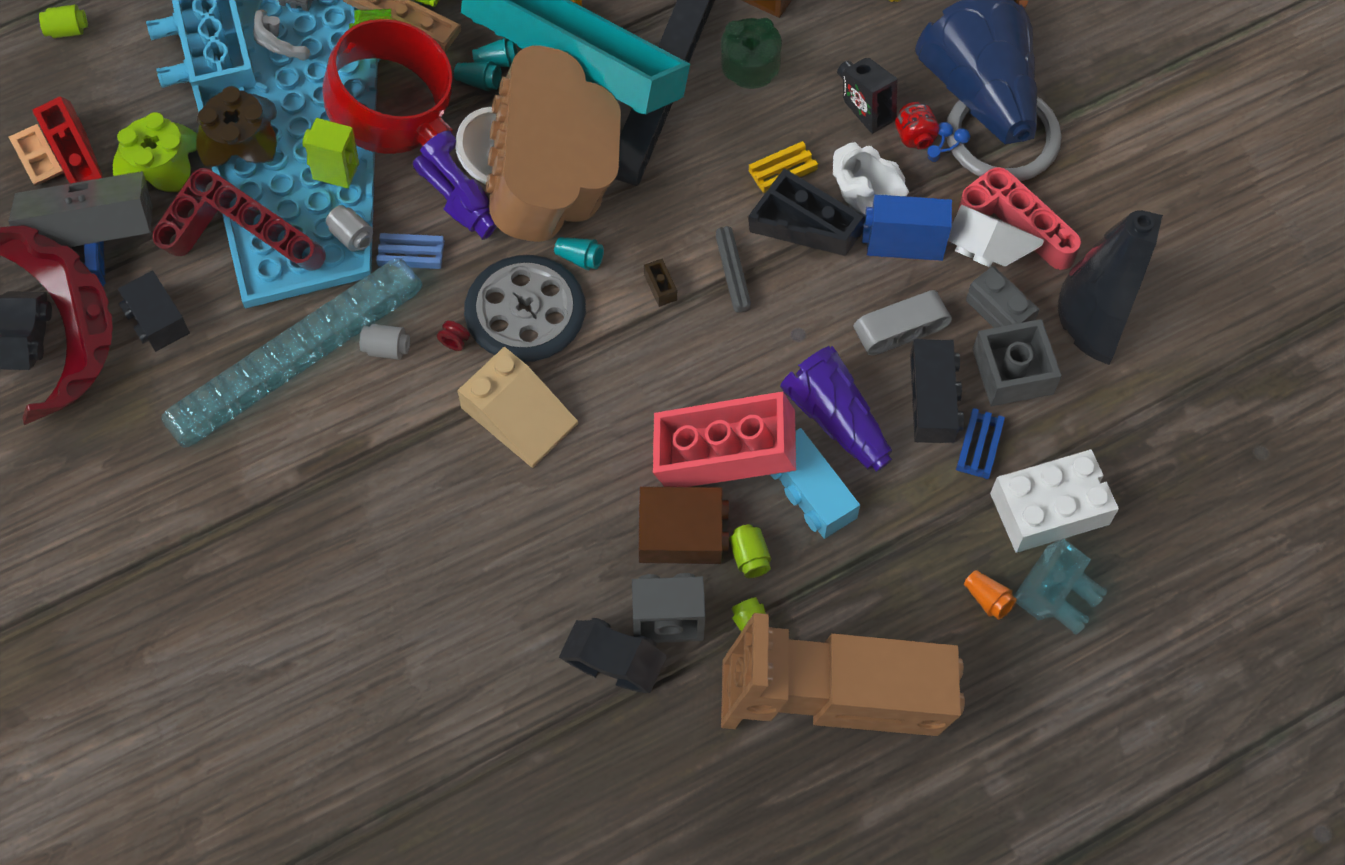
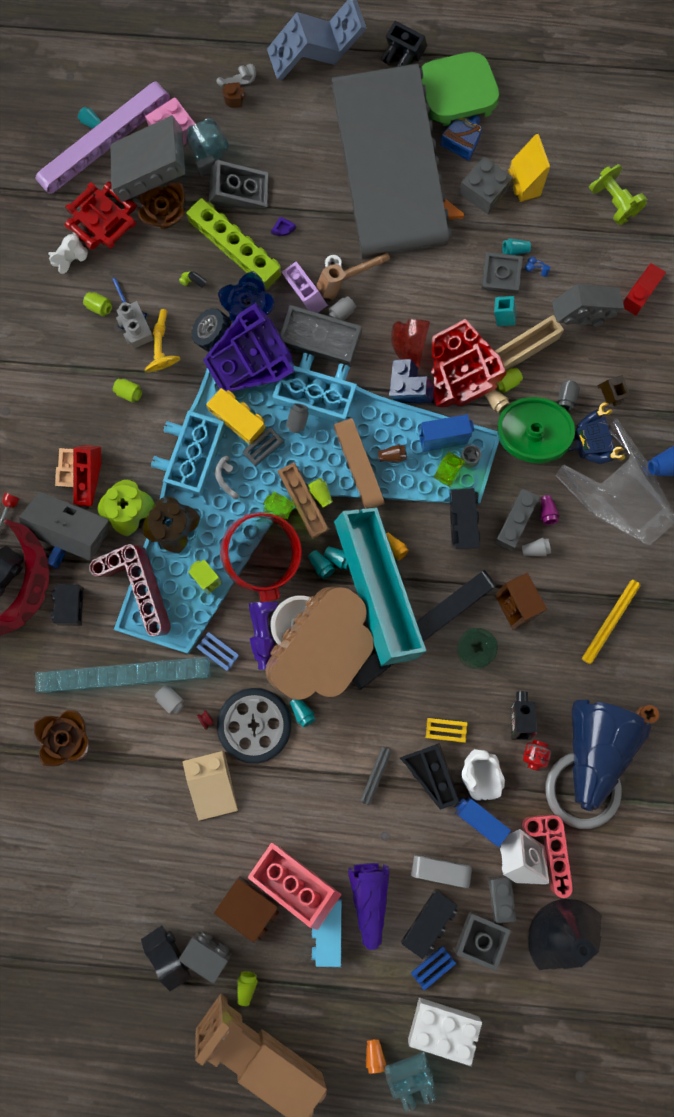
camera: 40 degrees right, 15 degrees up
(258, 450) = (48, 733): none -> reddish brown brick
(349, 228) = (189, 625): light grey brick -> none
(660, 282) = (332, 758): dark brown piece -> none
(750, 551) = (271, 948): lime brick -> none
(945, 130) = (556, 778): blue piece -> none

